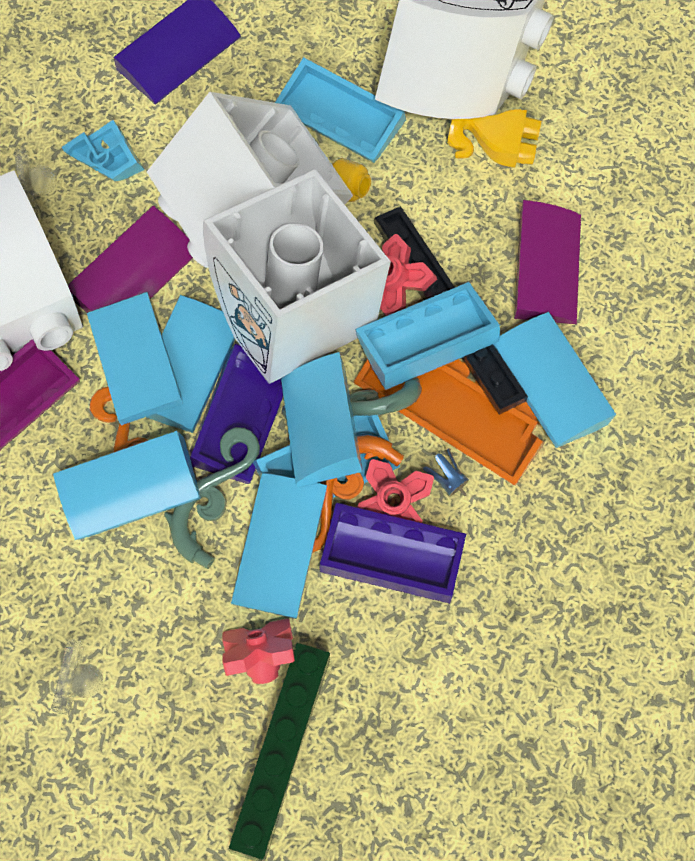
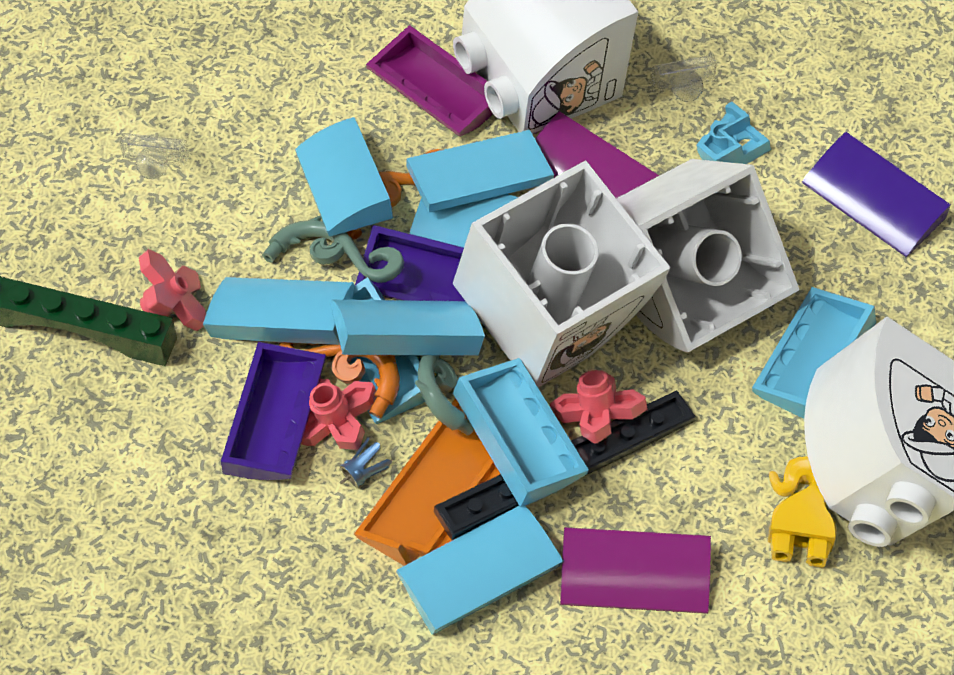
camera: 90 degrees right, 10 degrees down
(354, 176) = (720, 360): yellow head -> none

